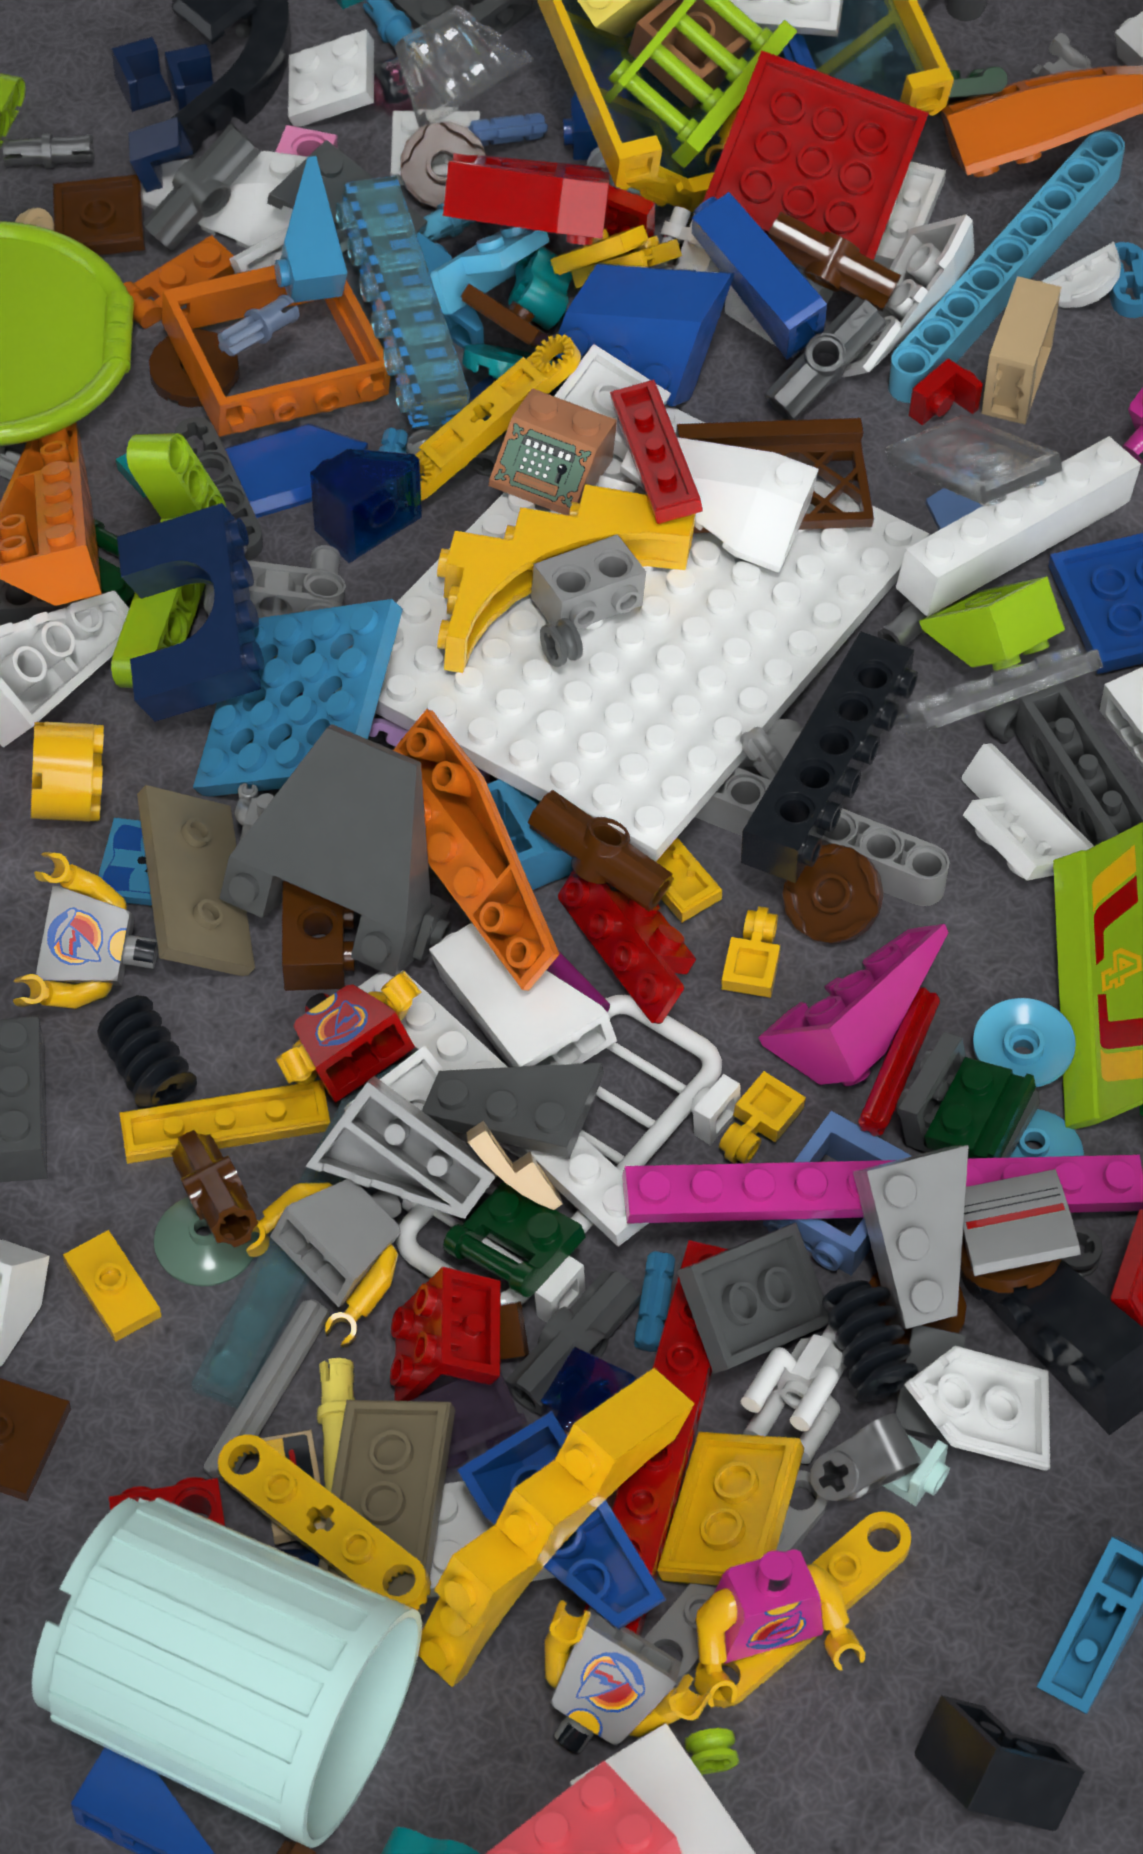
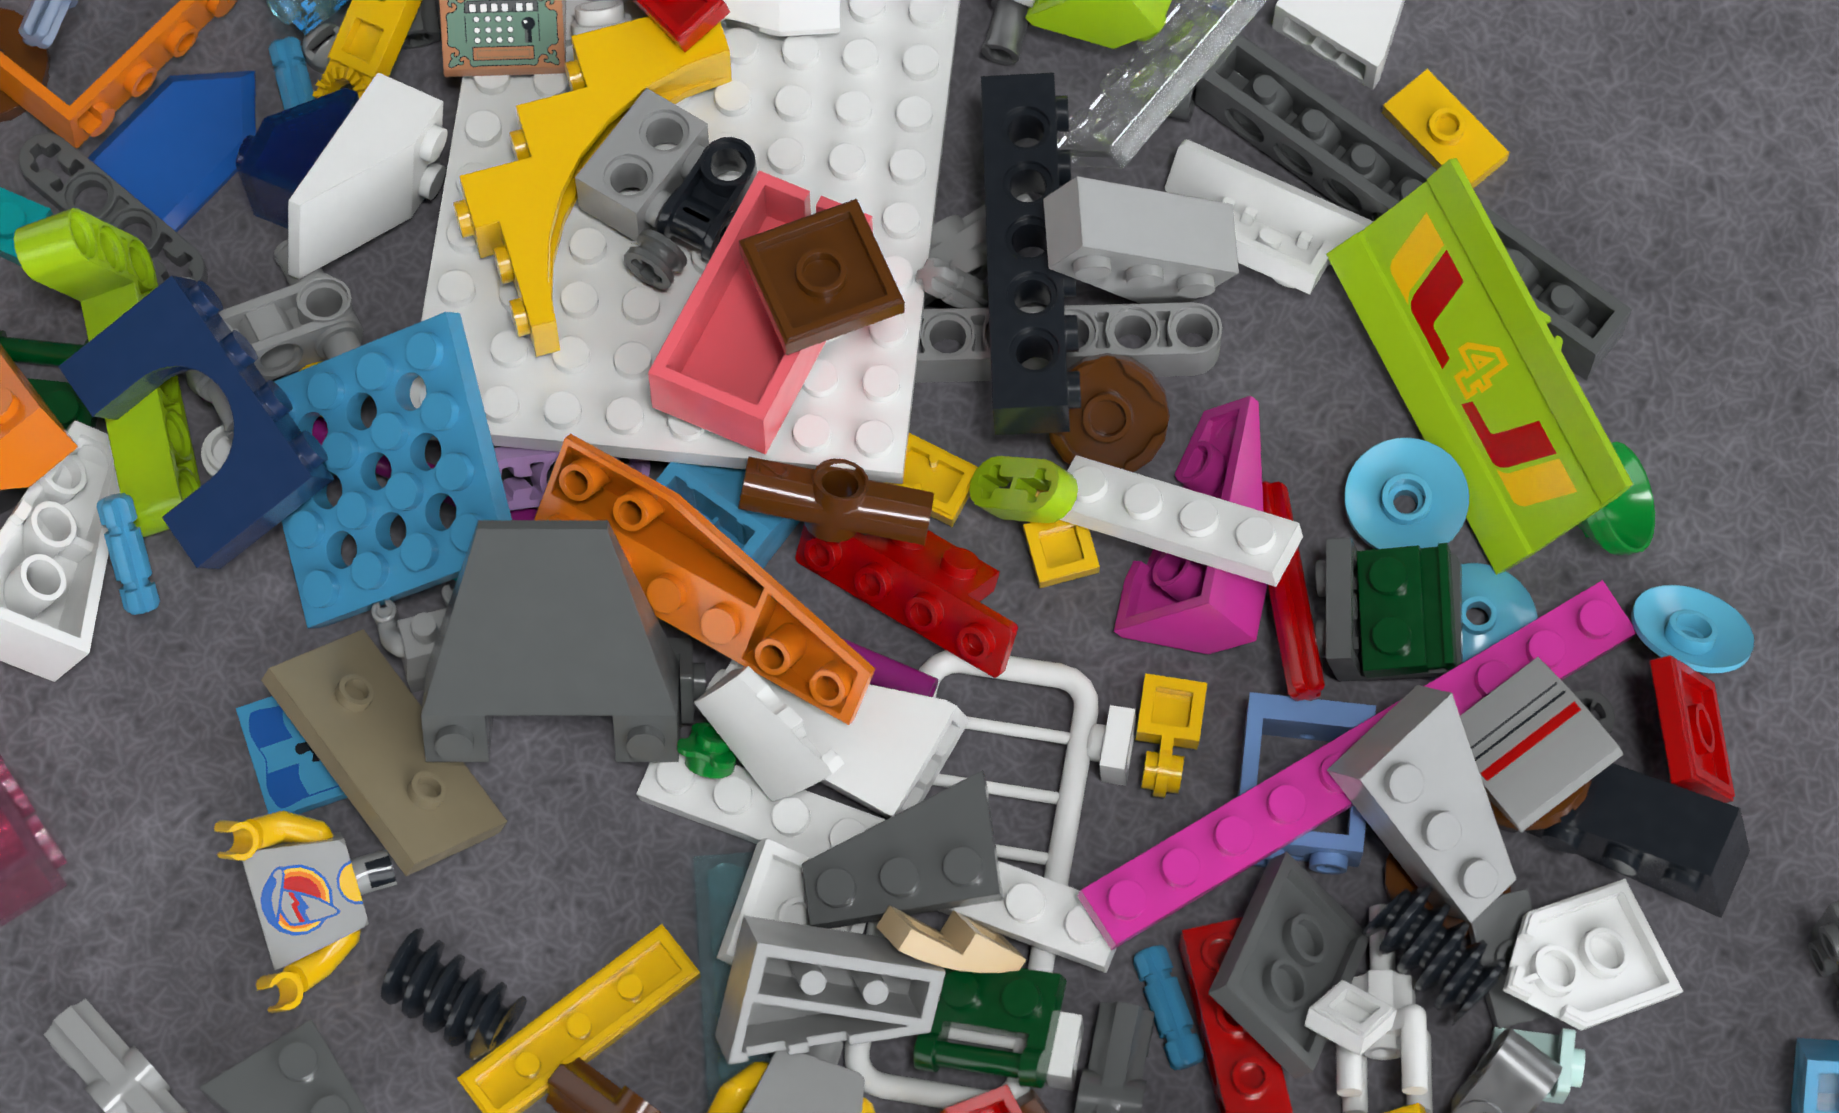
camera: 25 degrees left, 15 degrees up
(67, 771) = (156, 687): yellow brick -> none
(99, 681) = (128, 553): none -> dark azure axle
(310, 960) = (565, 785): reddish brown brick -> none
(350, 1036) = (671, 866): red torso -> none
(394, 519) = (367, 175): none -> white slope
(425, 974) = (707, 752): none -> green plate
(459, 969) = (765, 734): none -> white slope
(612, 697) = (723, 354): none -> coral piece
(627, 623) = (703, 203): none -> black piece
(662, 679) = (821, 276): none -> reddish brown plate
(742, 909) = (1026, 478): none -> lime beam
(777, 1347) = (1350, 1017): none -> white tile
(839, 970) = (1182, 522): none -> white plate
(912, 775) = (1140, 240): none -> light grey wedge

